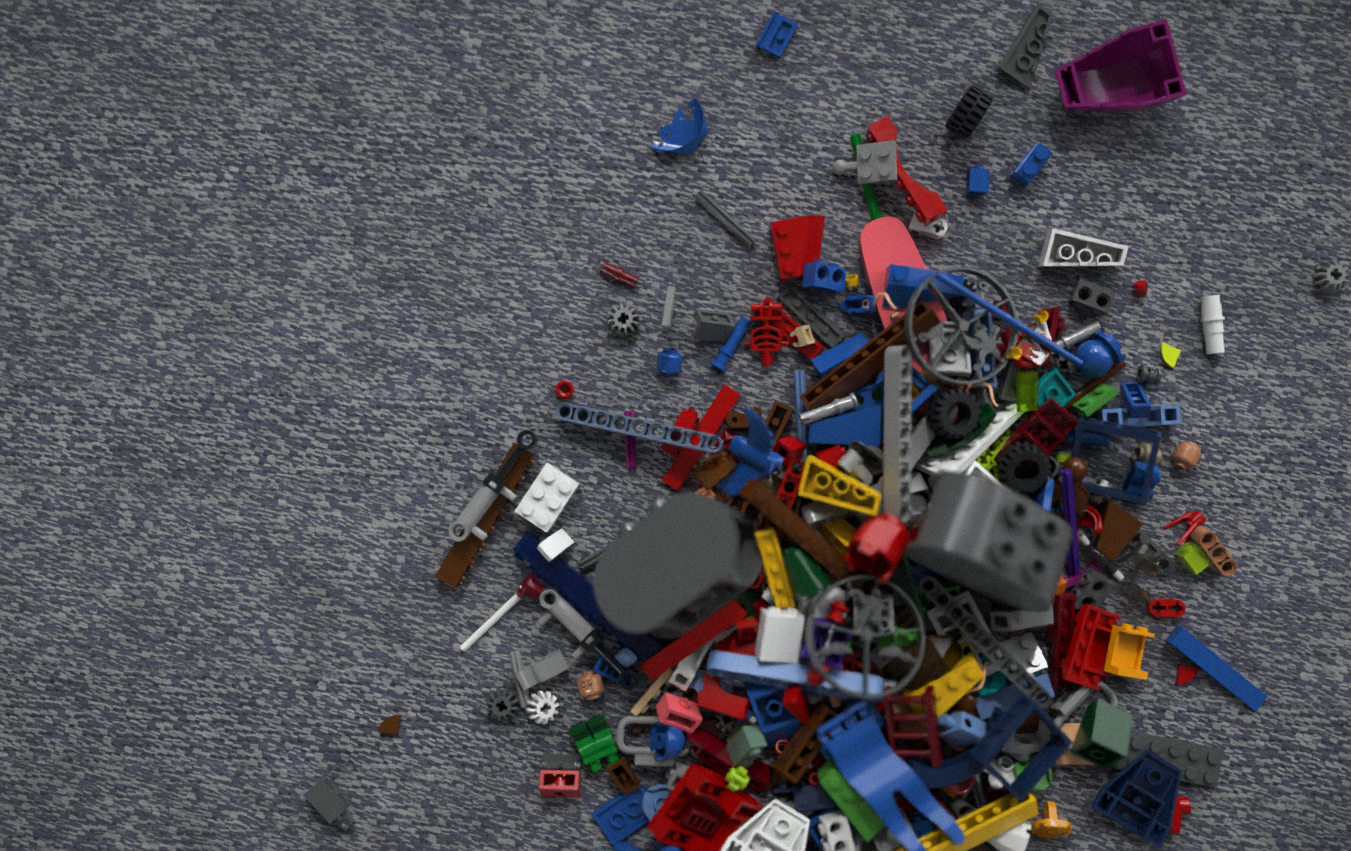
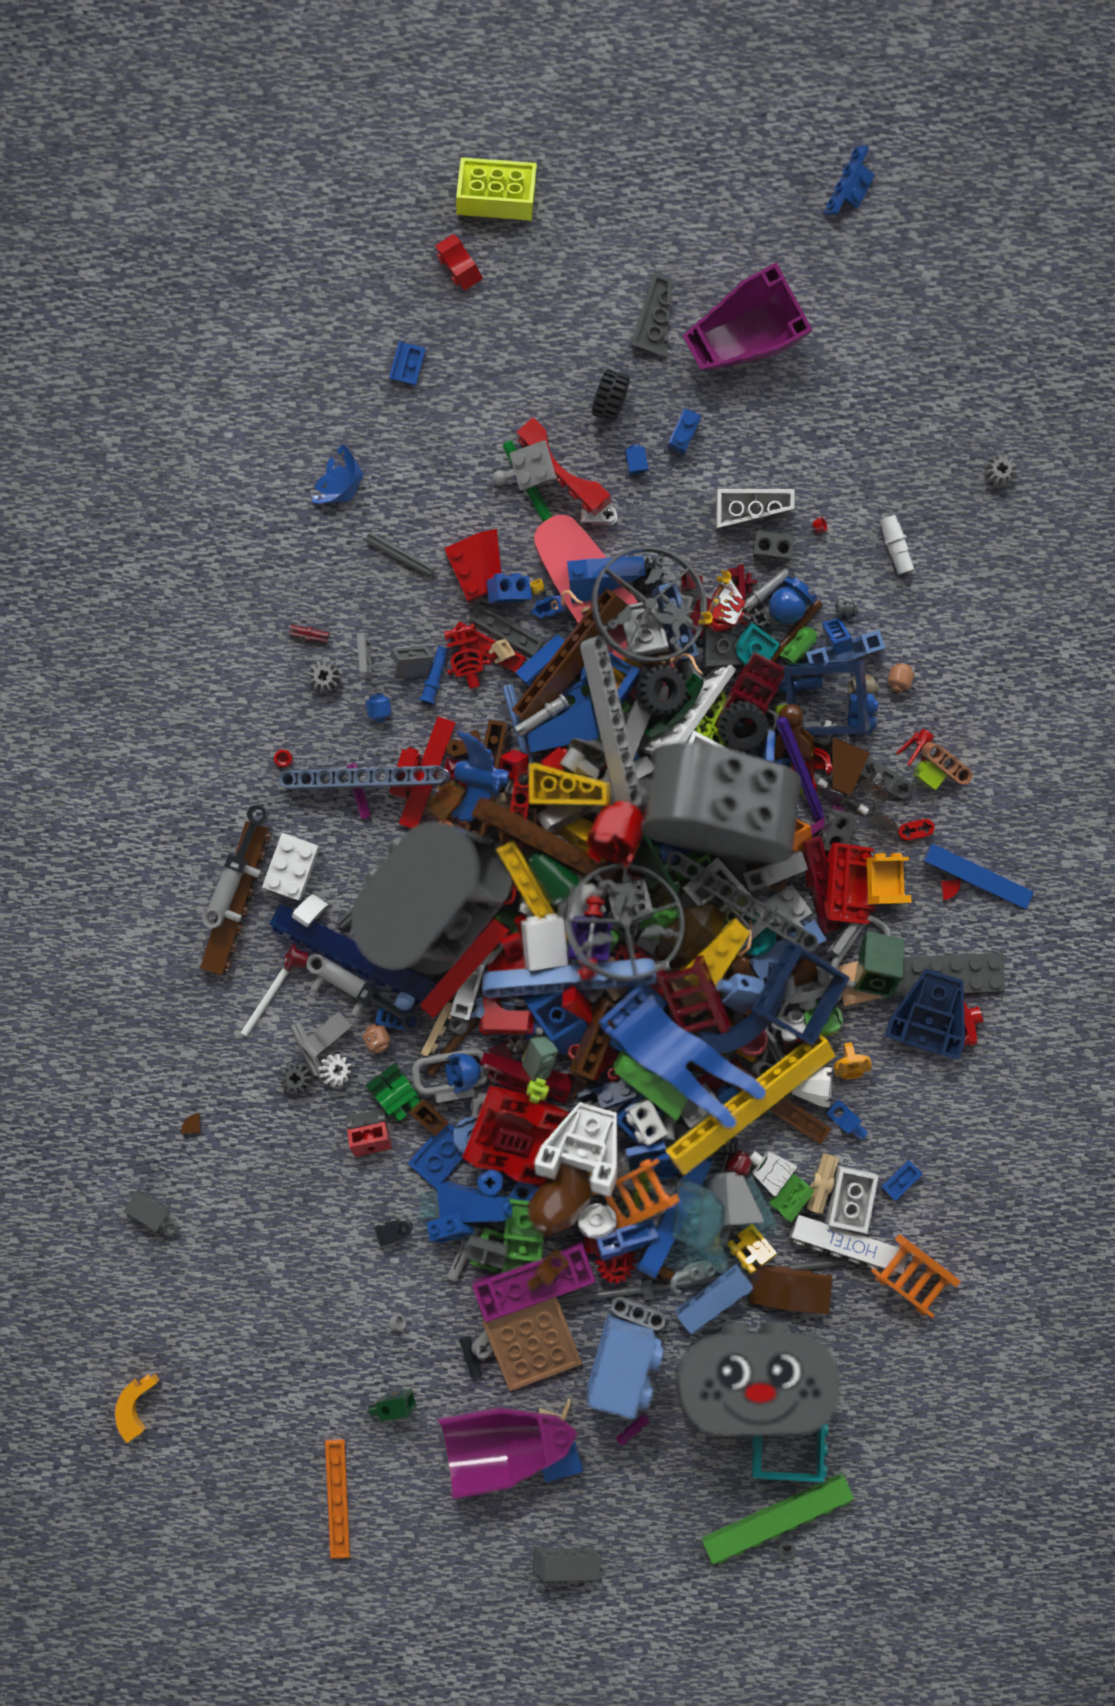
camera: 20 degrees left, 0 degrees up
(678, 712) = (467, 1042): coral brick -> none
(1008, 319) = (692, 587): blue piece -> none
(1027, 391) = (729, 652): clear neon green plate -> none
(1169, 354) = (862, 584): neon yellow tile -> none

